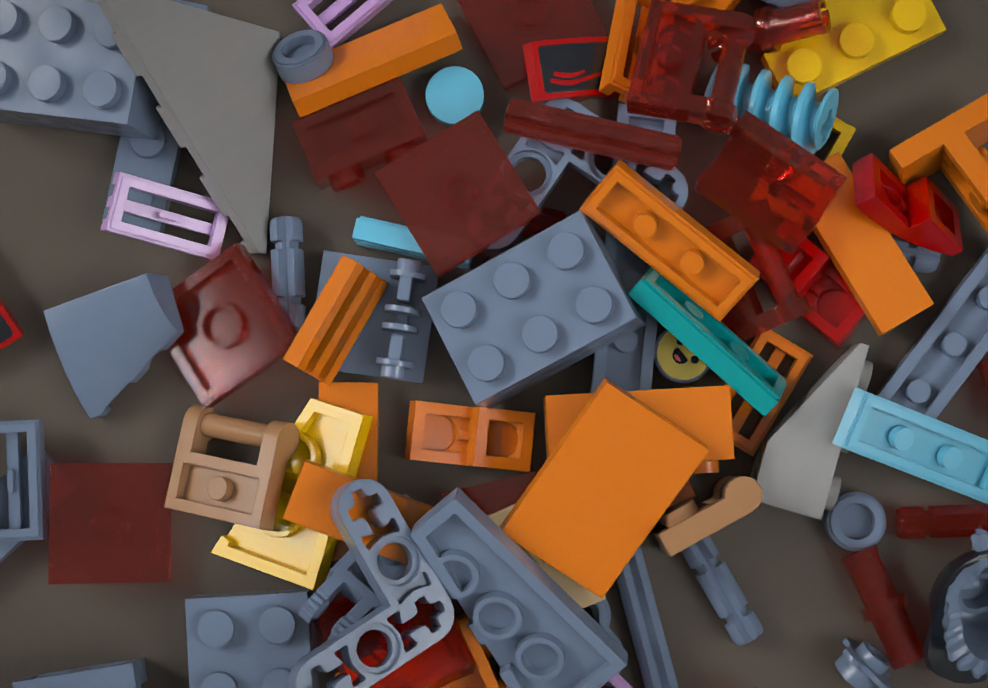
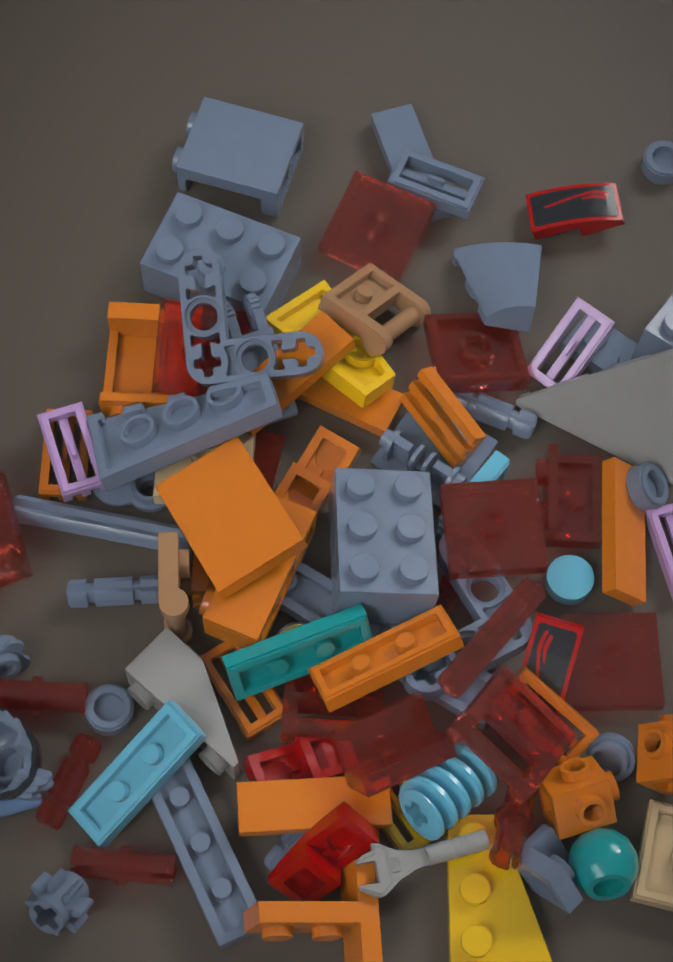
camera: 110 degrees right, 20 degrees down
(887, 124) = (395, 865): none -> light grey piece

